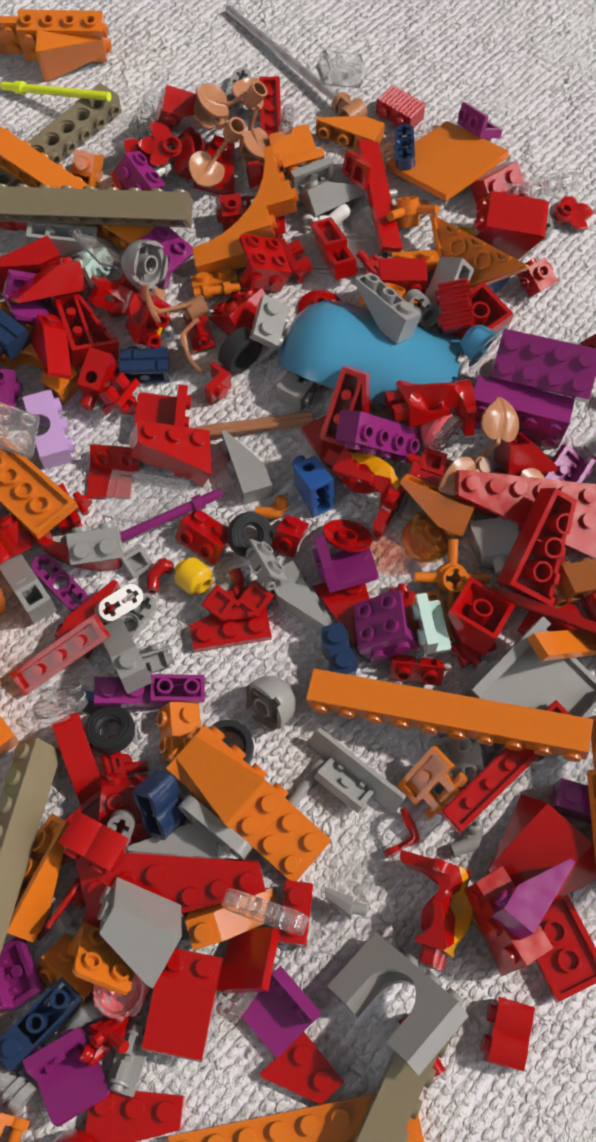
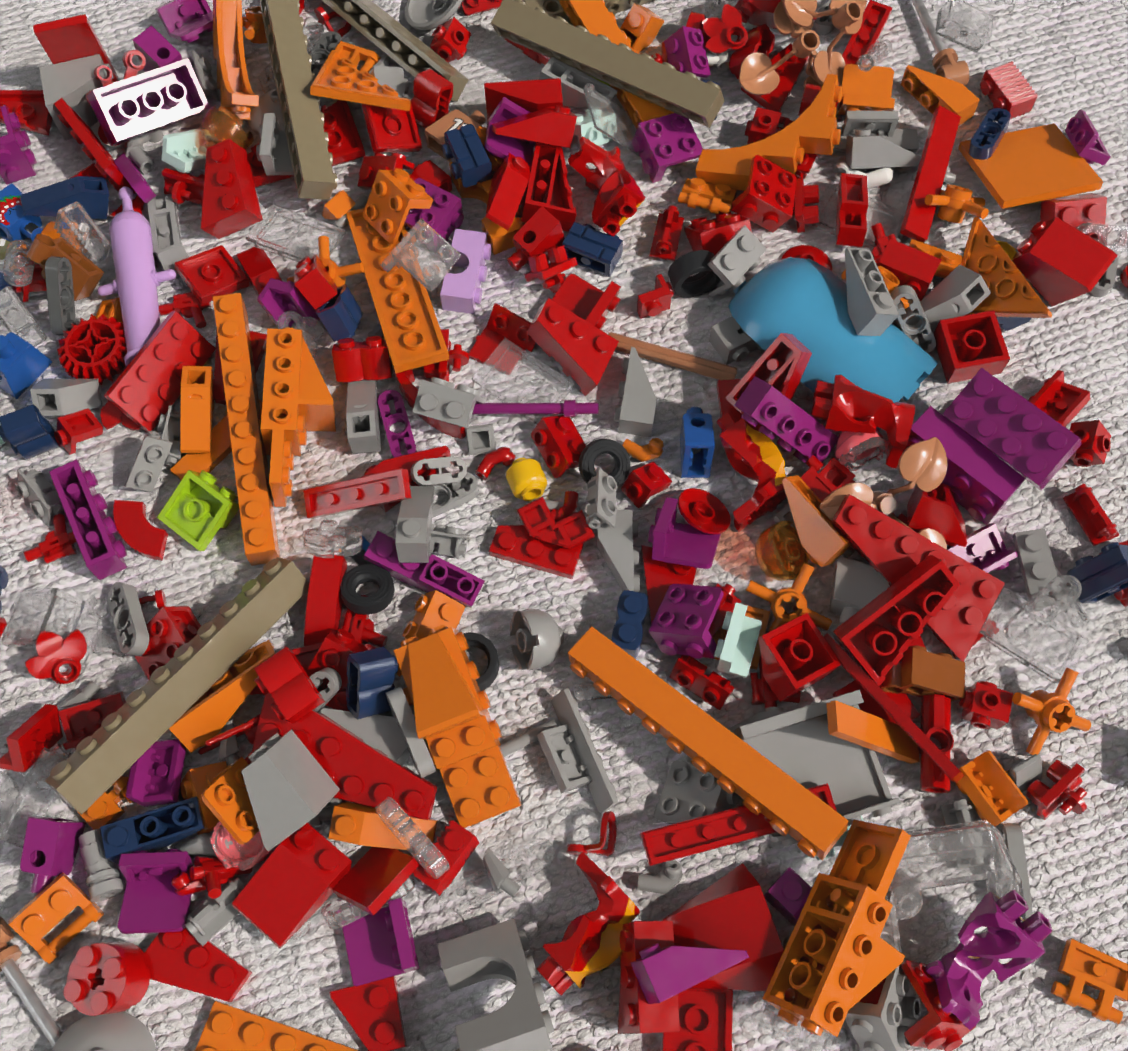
camera: 30 degrees right, 0 degrees up
(144, 263) = (641, 145): light grey cylinder -> none
(192, 309) = (664, 210): nougat plant -> none
(357, 169) = (920, 136): red slope -> none
(426, 775) = (649, 792): orange plate -> none
(455, 306) = (945, 323): red brick -> none
(477, 342) = (951, 372): dark azure piece -> none
(537, 277) = (1062, 330): red brick -> none
(562, 327) = (1060, 399): none -> red bracket

